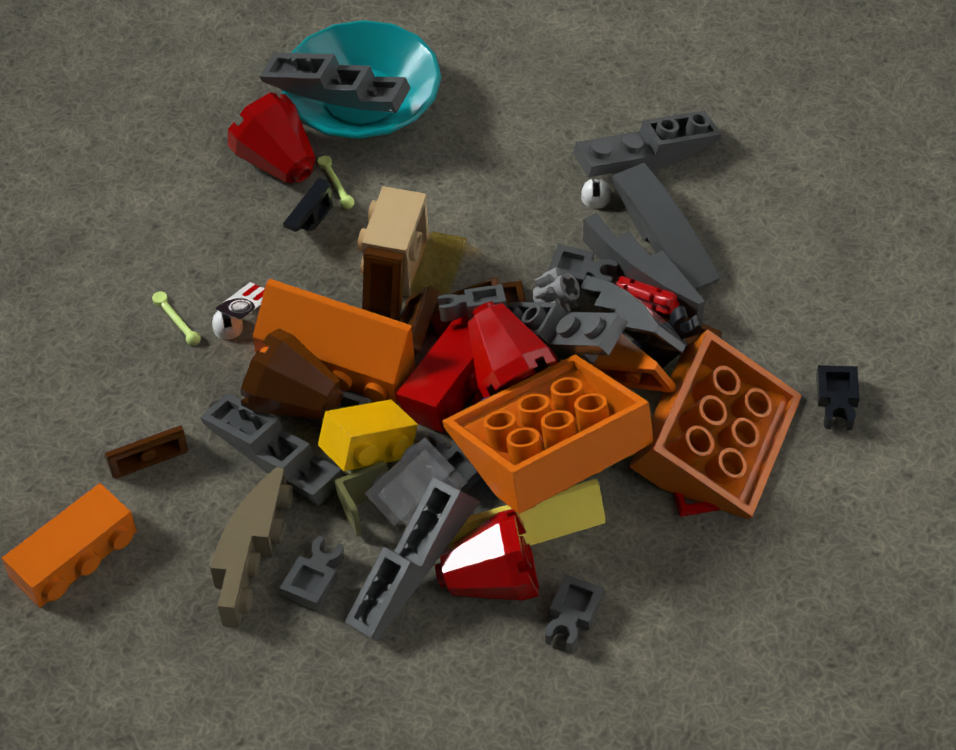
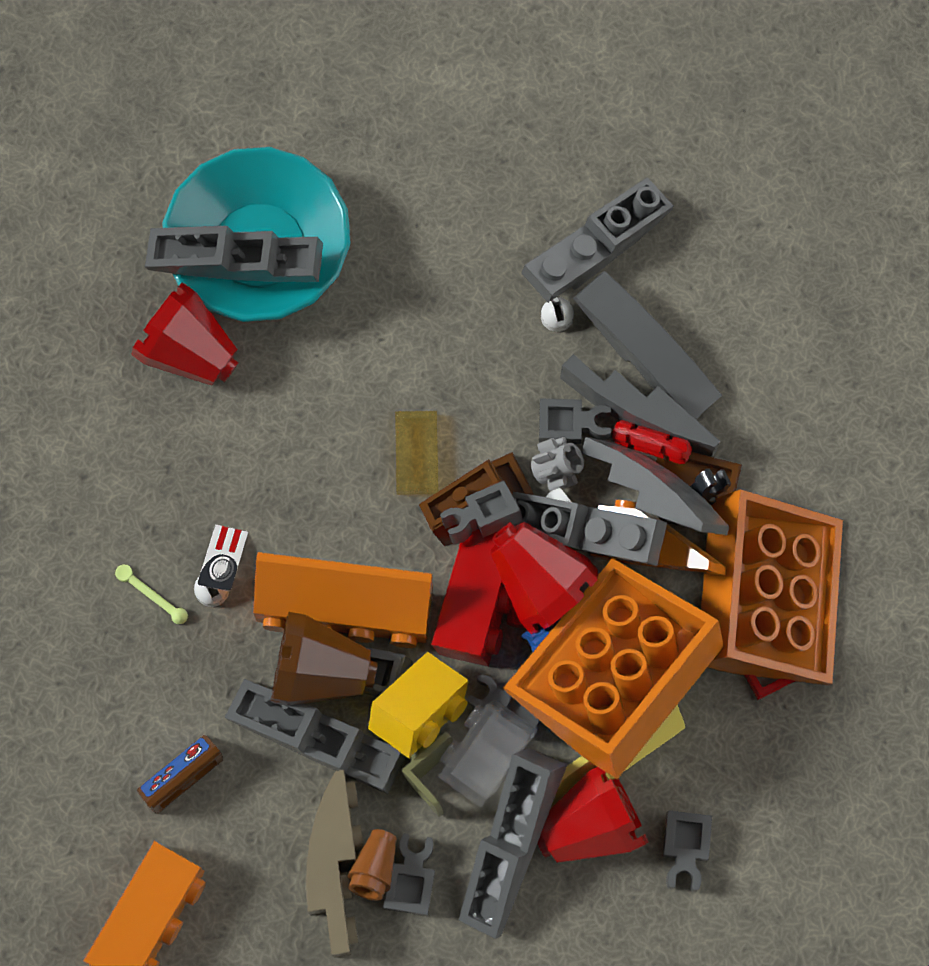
camera: 20 degrees left, 20 degrees up
(280, 551) = (374, 866): none -> dark orange cone
(311, 208) = (255, 420): black tile -> none
(346, 201) = (245, 344): yellowish green hinge -> none
(383, 282) = (373, 510): reddish brown tile -> none
(398, 225) = (367, 442): tan brick -> none
(418, 313) = (417, 536): reddish brown tile -> none
(838, 393) = (881, 508): black plate -> none

